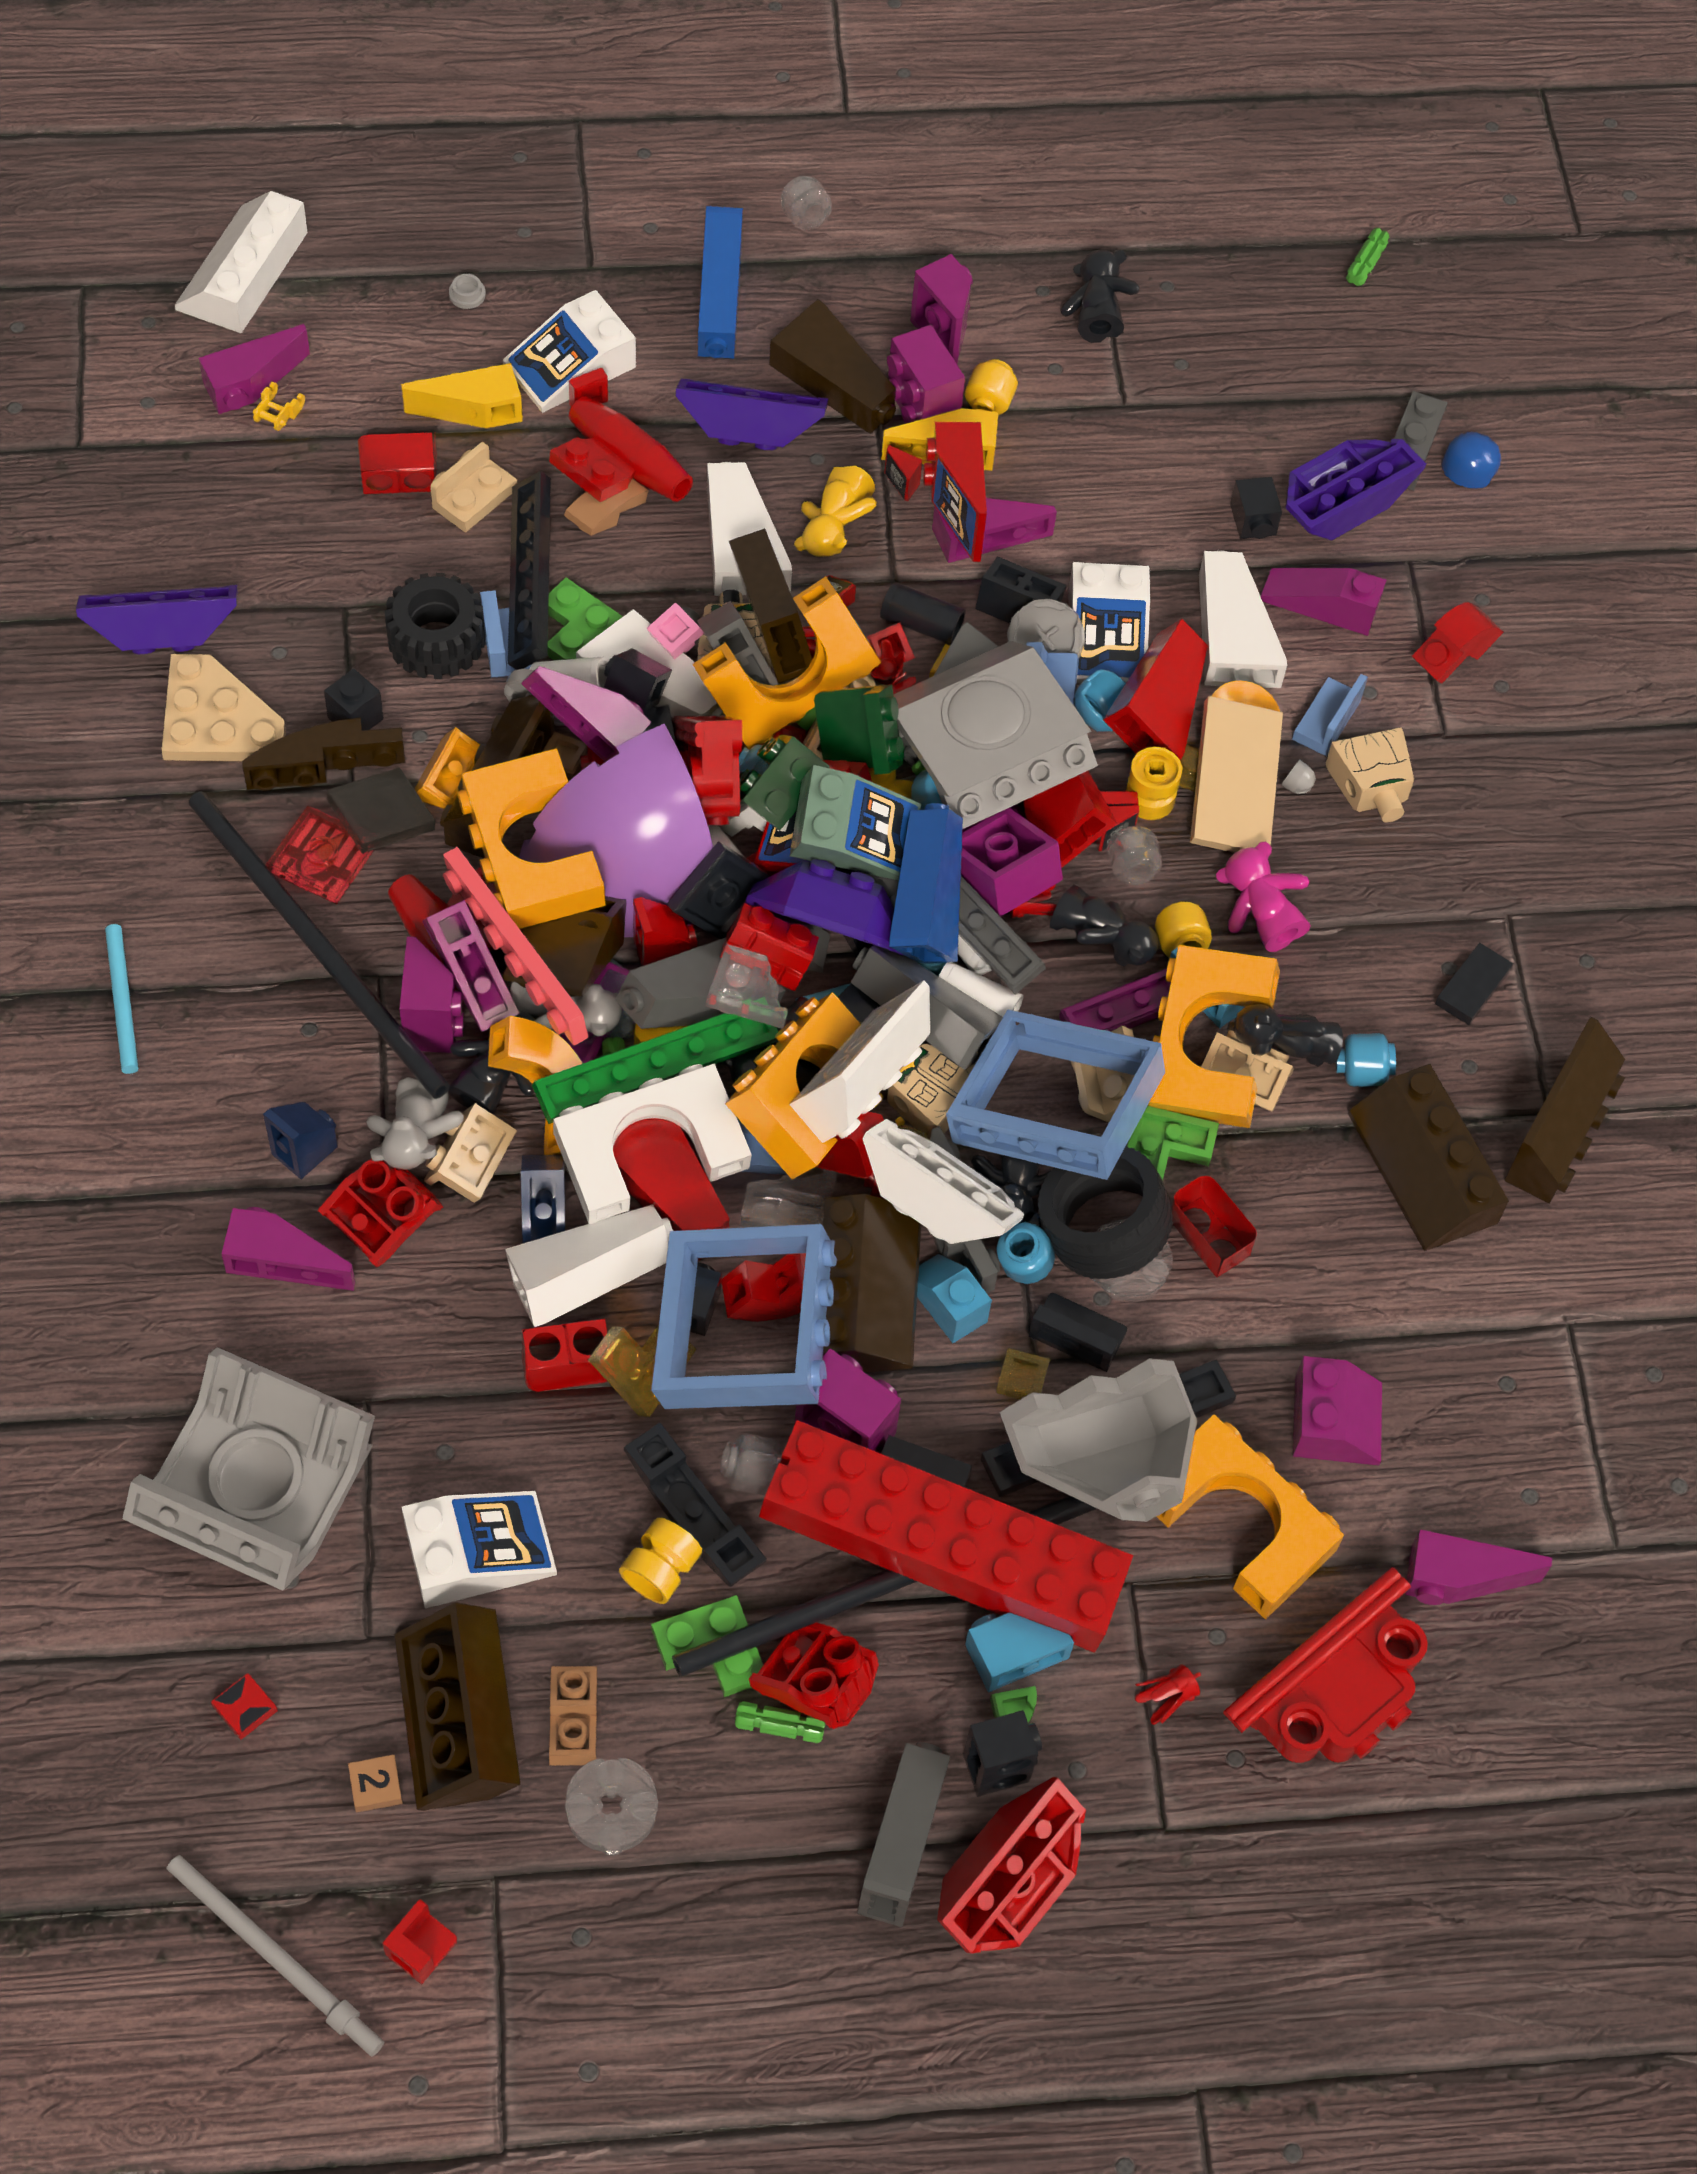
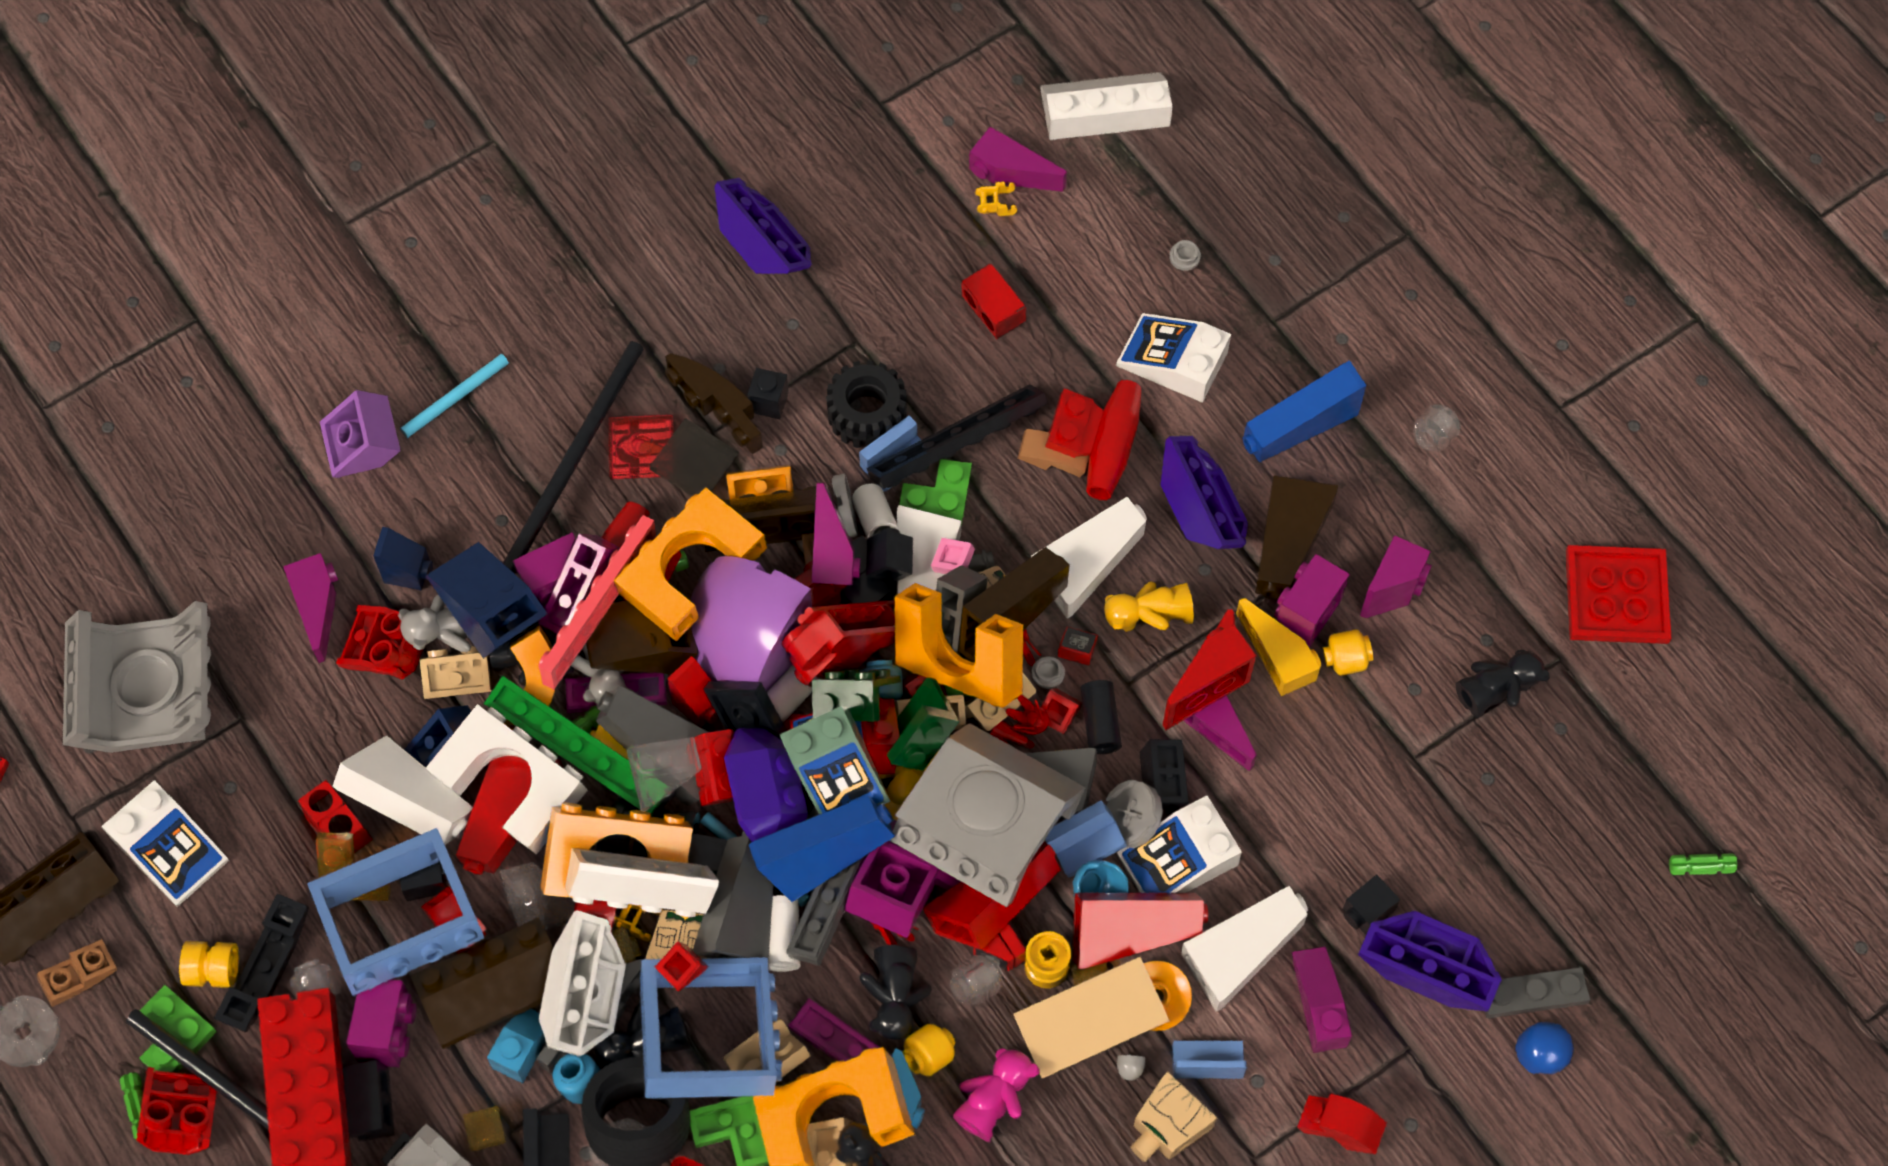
camera: 65 degrees right, 5 degrees up
(102, 1110) = (359, 434): none -> medium lavender slope
(213, 713) = (712, 315): tan plate -> none
(433, 1051) = (486, 598): none -> dark blue slope
(471, 488) = (1009, 359): tan bracket -> none
(472, 398) = (1091, 317): yellow slope -> none
(592, 384) = (1150, 382): red tile -> none
(978, 1079) = (681, 966): none -> red slope
(1068, 170) = (1618, 594): none -> red plate

